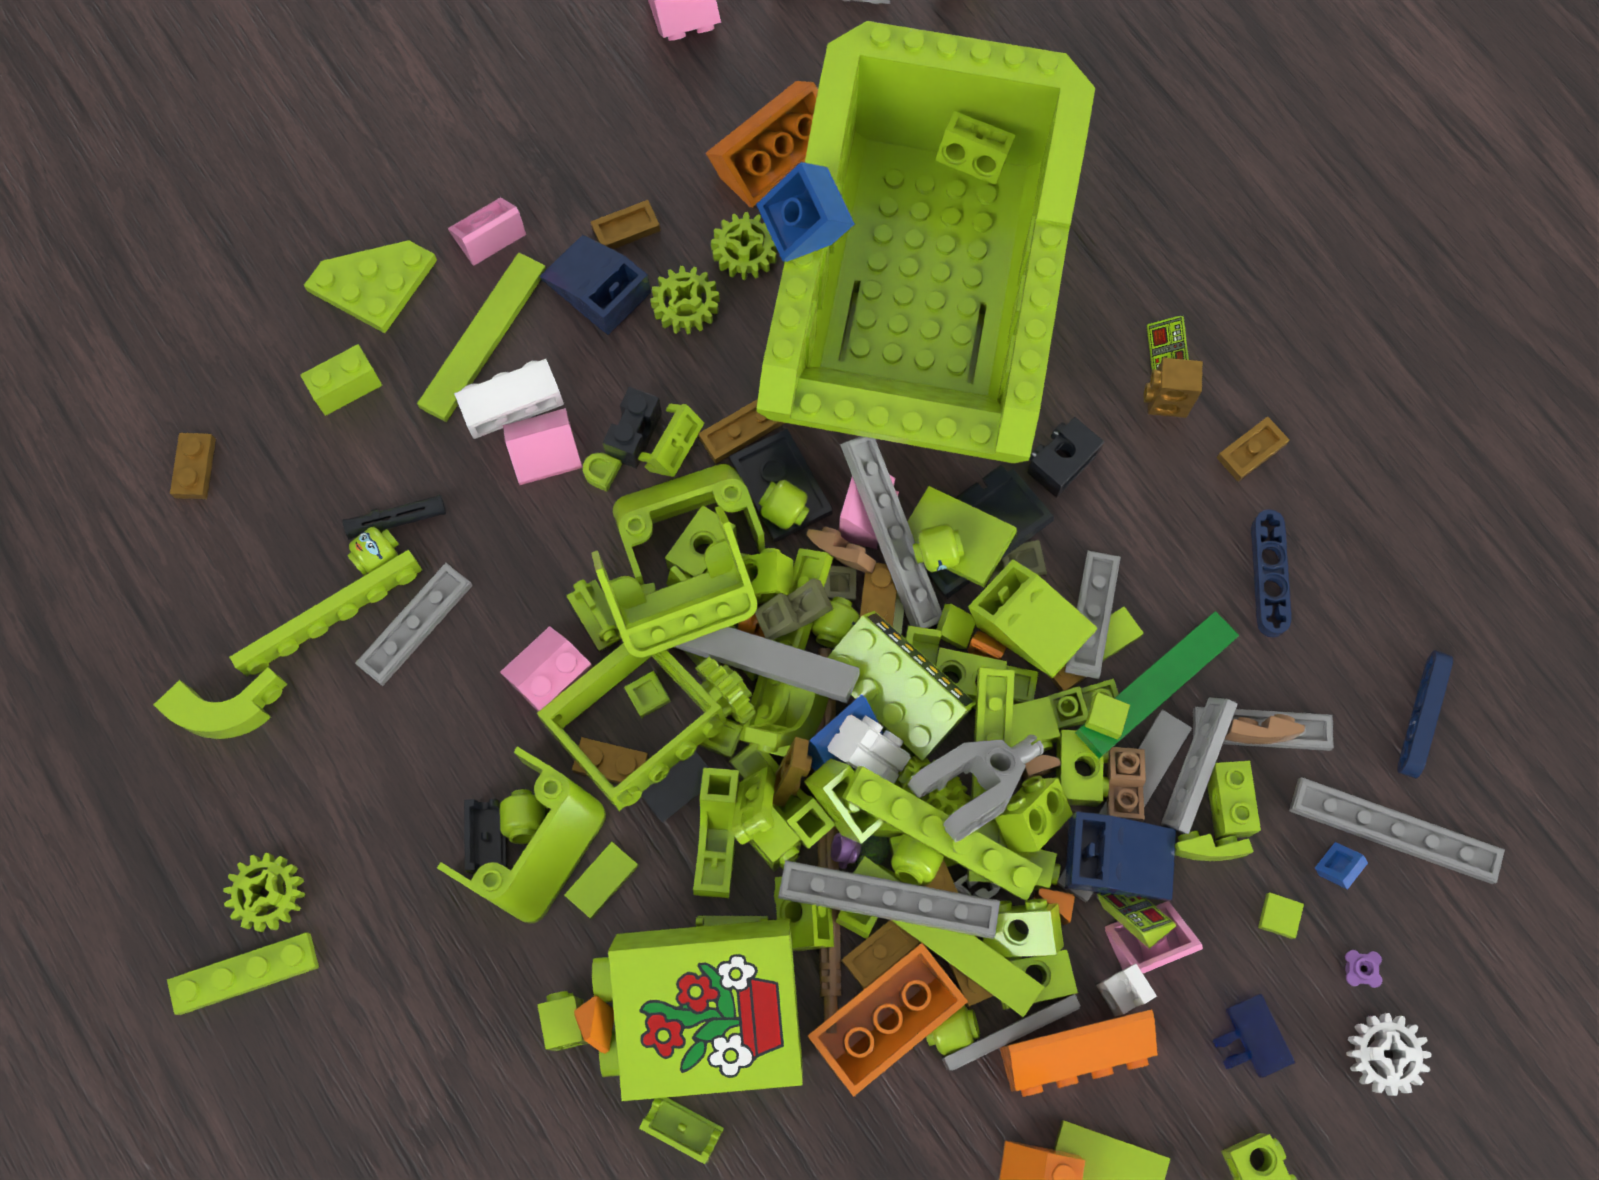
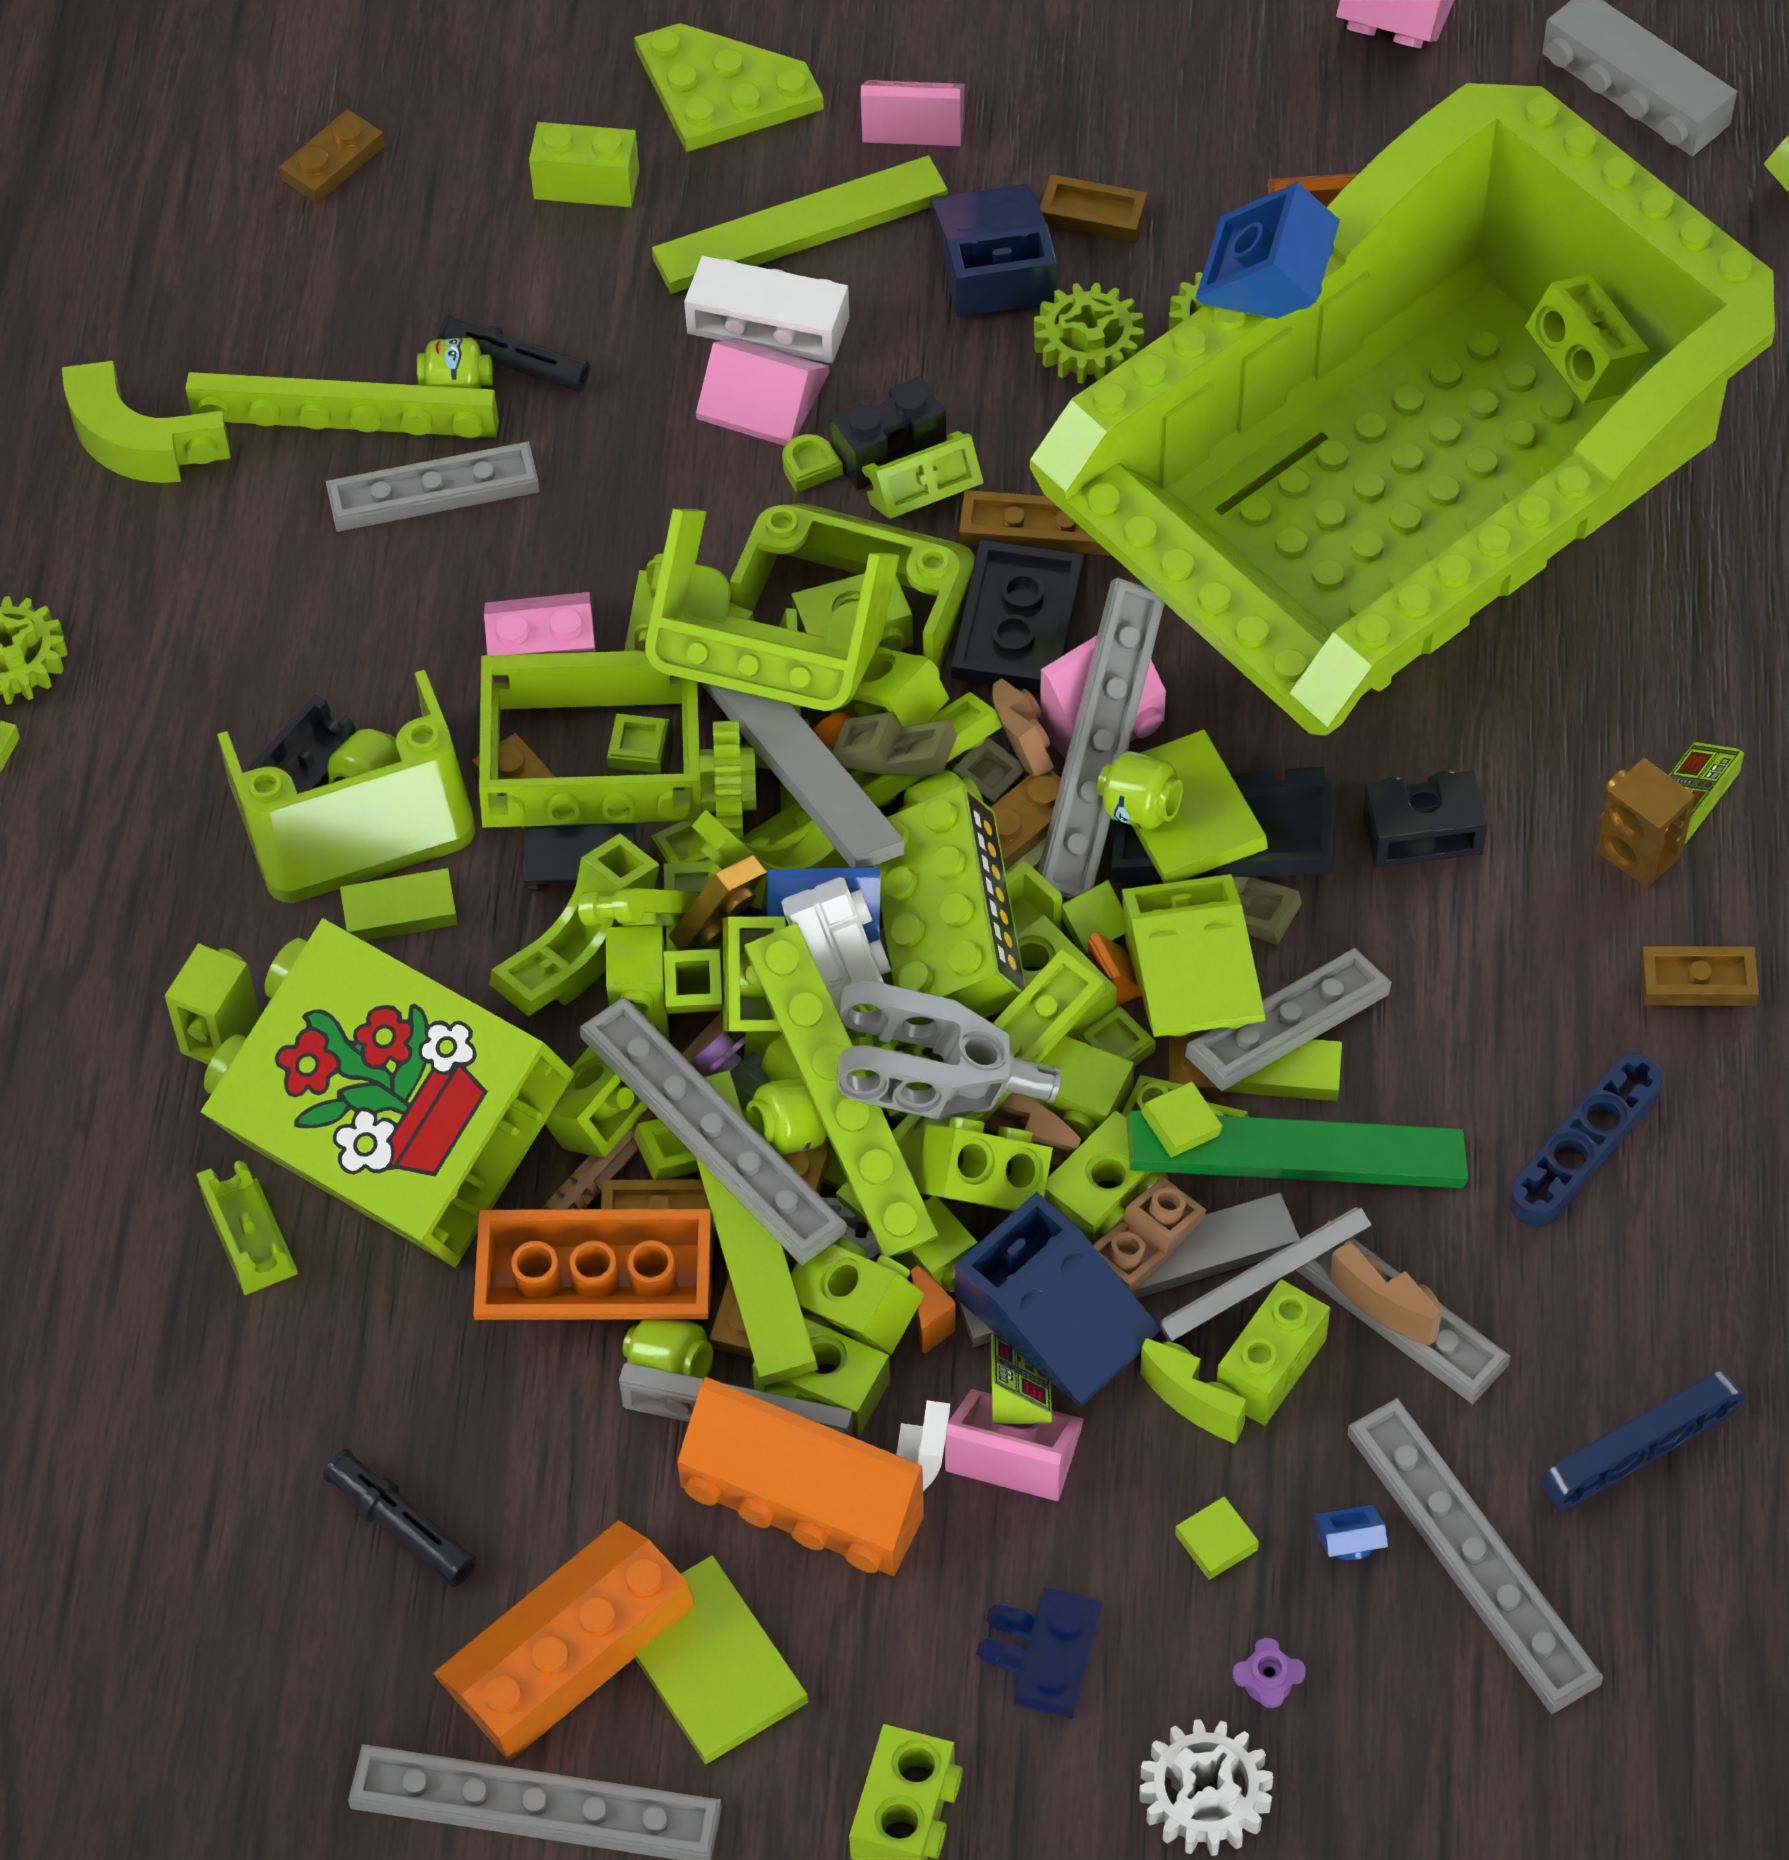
camera: 40 degrees right, 15 degrees down
(596, 1023) = (241, 1003): orange slope -> none
(784, 504) = (993, 626): lime head -> none

